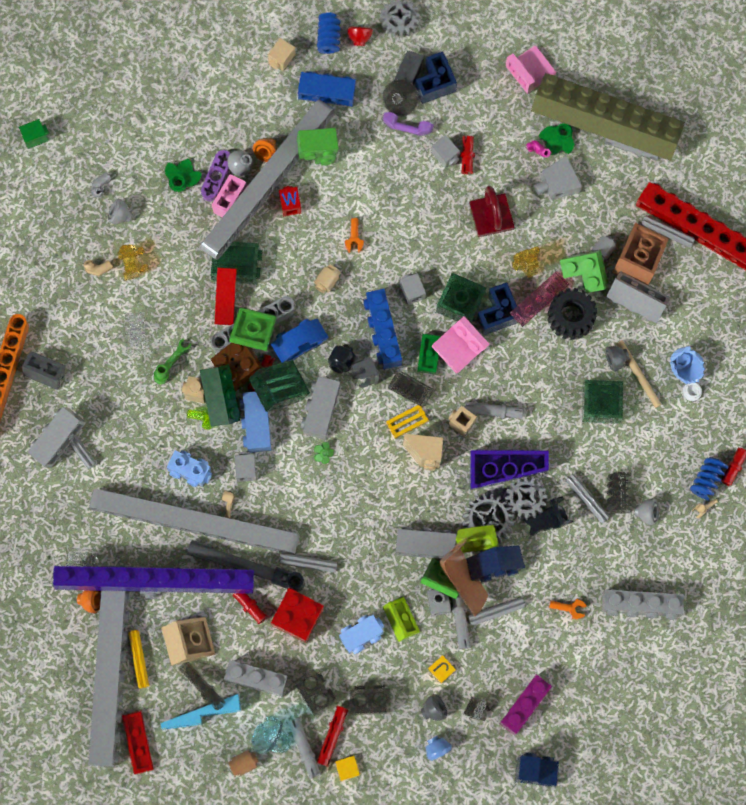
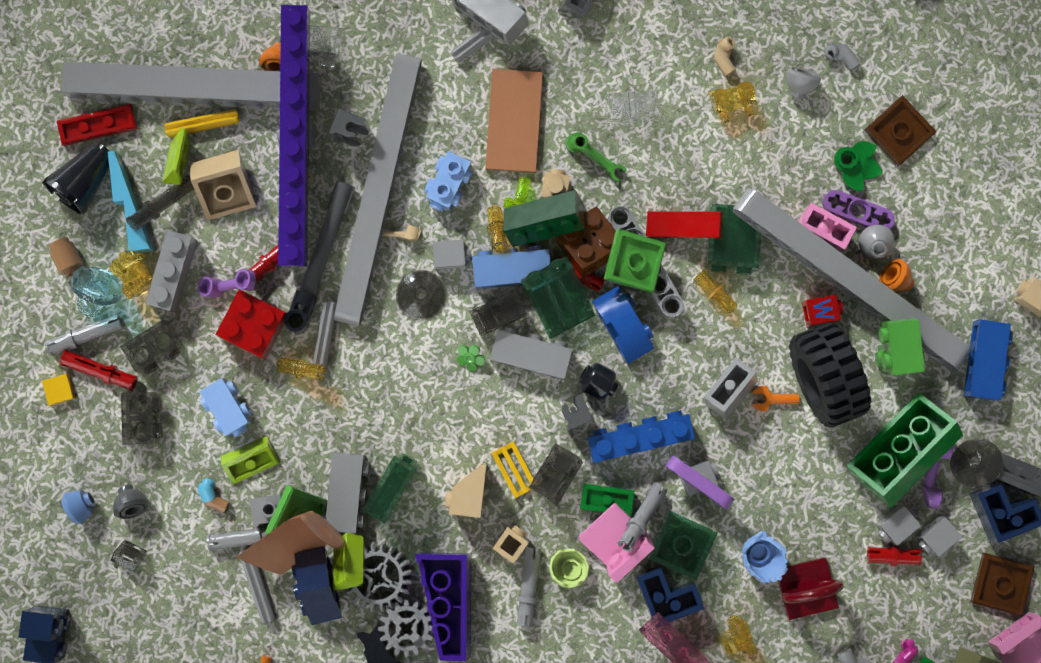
camera: 90 degrees right, 10 degrees up
(143, 421) = (514, 121): none -> nougat tile
(145, 542) = (346, 126): none -> dark grey hinge
(157, 145) = (900, 130): none -> reddish brown tile
(167, 676) = (176, 158): none -> lime slope
(182, 751) = (79, 178): none -> black cone
(226, 432) = (495, 229): none -> clear yellow axle
(257, 707) = (133, 273): none -> clear yellow piece
(268, 648) = (215, 287): none -> medium lavender bar
(275, 276) = (715, 292): none -> clear yellow axle
(277, 500) = (429, 305): none -> clear smoke dish
(290, 430) = (498, 313): none -> clear smoke brick
(327, 279) = (710, 361): tan brick -> none
(331, 578) = (301, 368): none -> clear yellow axle
(337, 192) = (830, 374): none -> black tyre
(347, 264) = (731, 389): none -> light grey brick
(391, 144) = (905, 450): none -> green brick
(416, 284) = (700, 482): none -> medium lavender beam
(421, 506) = (391, 487): none -> clear green brick
(430, 648) = (209, 497): none -> arm
(441, 669) = (182, 512): yellow tile -> none
(447, 328) = (638, 524): none -> light grey pin
(453, 124) = (938, 537): none -> light grey brick
(470, 241) = (774, 558): none -> light blue hair
(480, 380) = (569, 568): none -> yellowish green hair
(486, 83) = (1002, 584): none -> reddish brown tile
(525, 705) = (130, 621): magenta brick -> none

